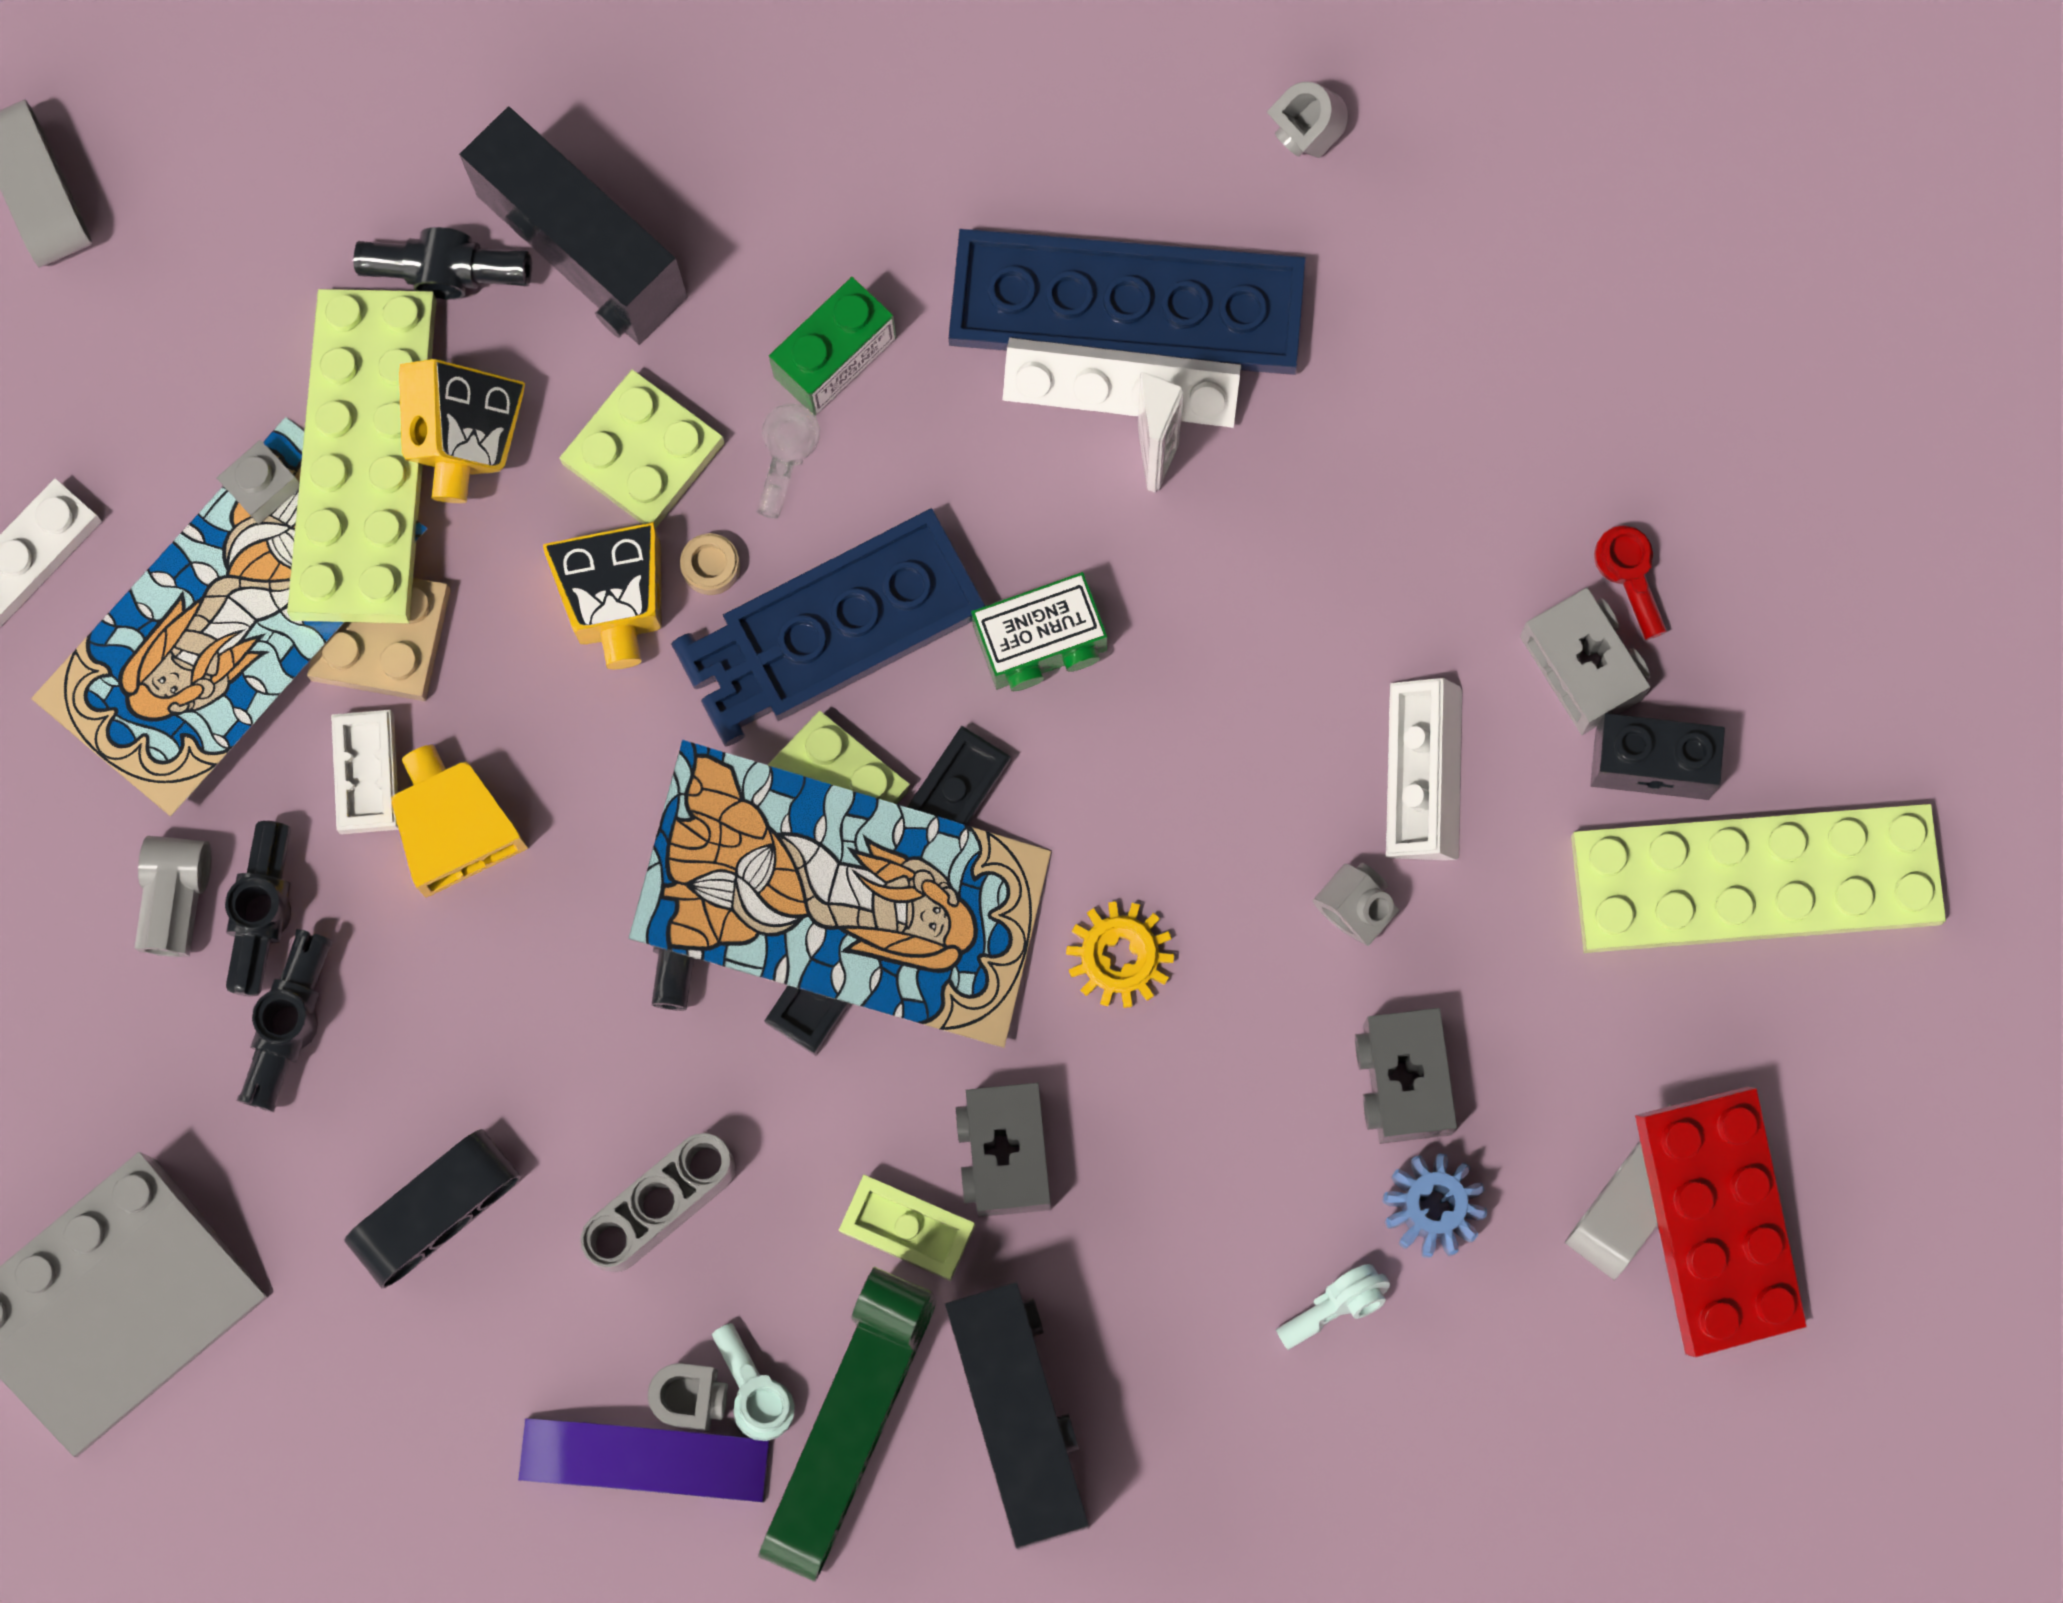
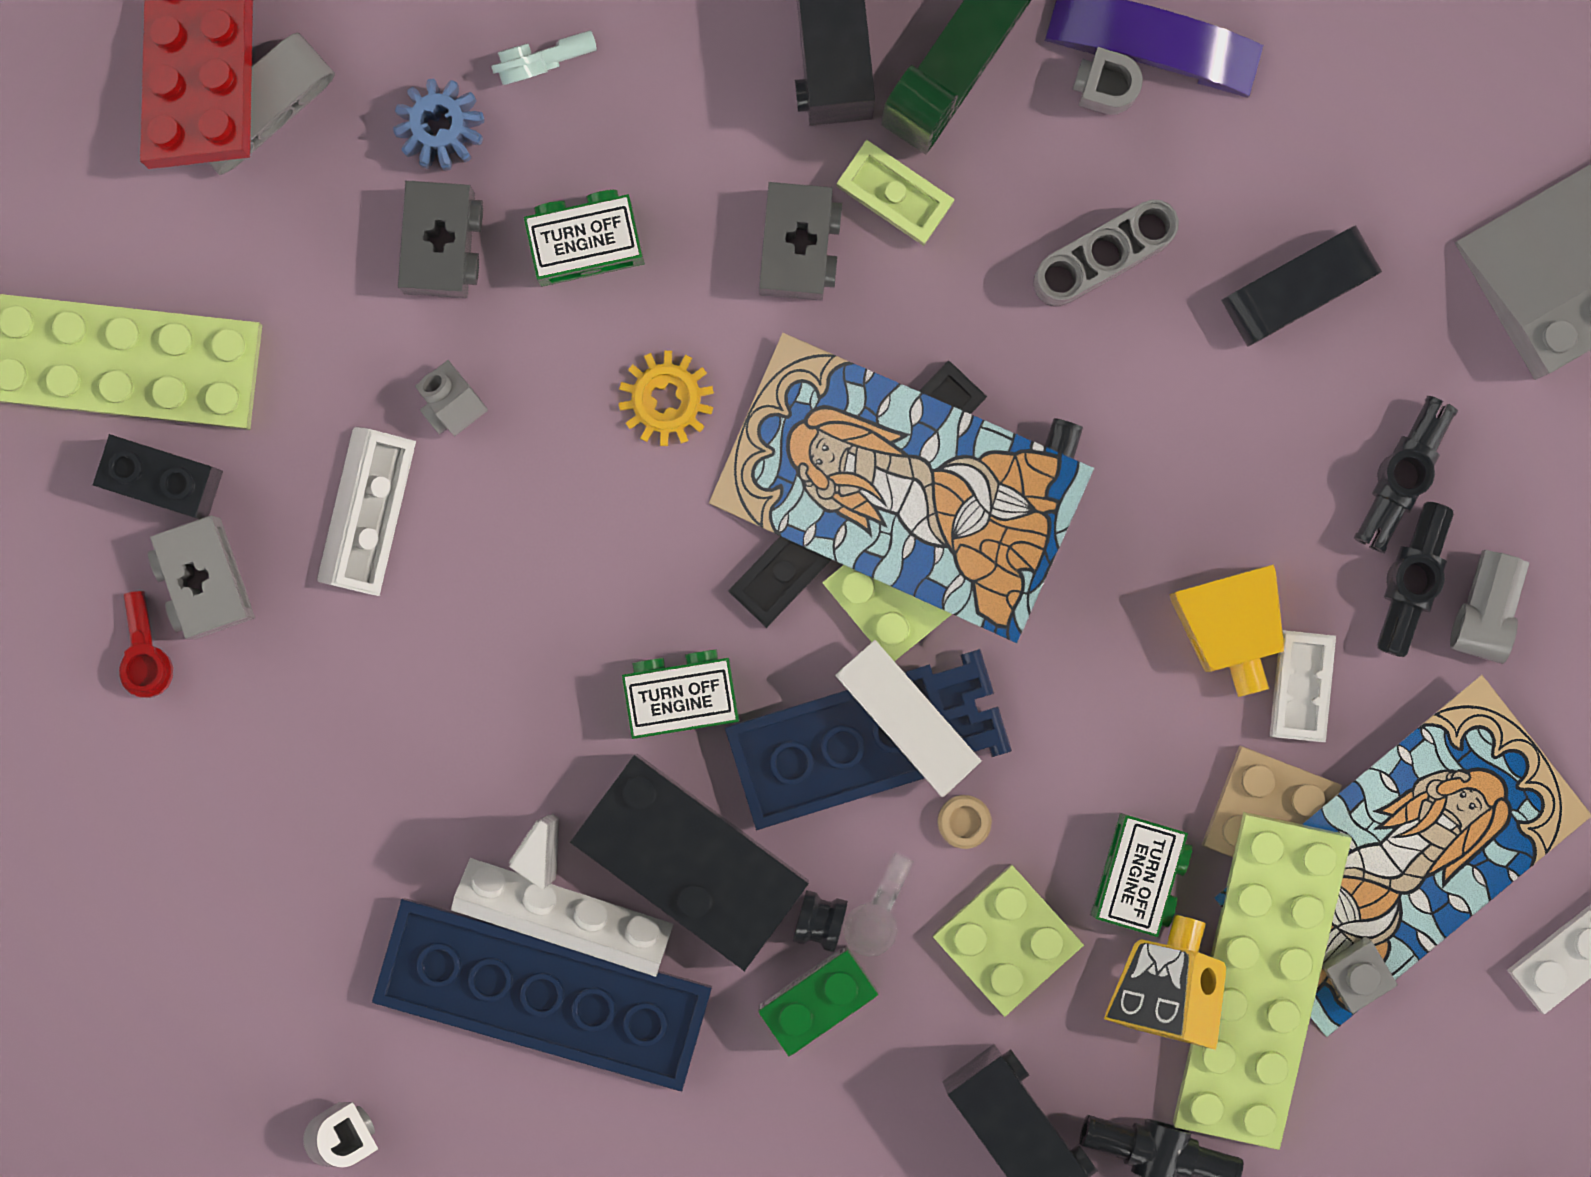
camera: 175 degrees left, 10 degrees up
(506, 552) = (1141, 875): none -> brick
(610, 588) = (1058, 810): torso -> none
(762, 1405) = (1045, 66): light aqua plate -> none
(789, 649) = (908, 718): none -> white slope
(845, 429) = (820, 921): none -> black wheel
(995, 462) = (690, 861): none -> black brick
(1245, 1108) = (583, 238): none -> brick

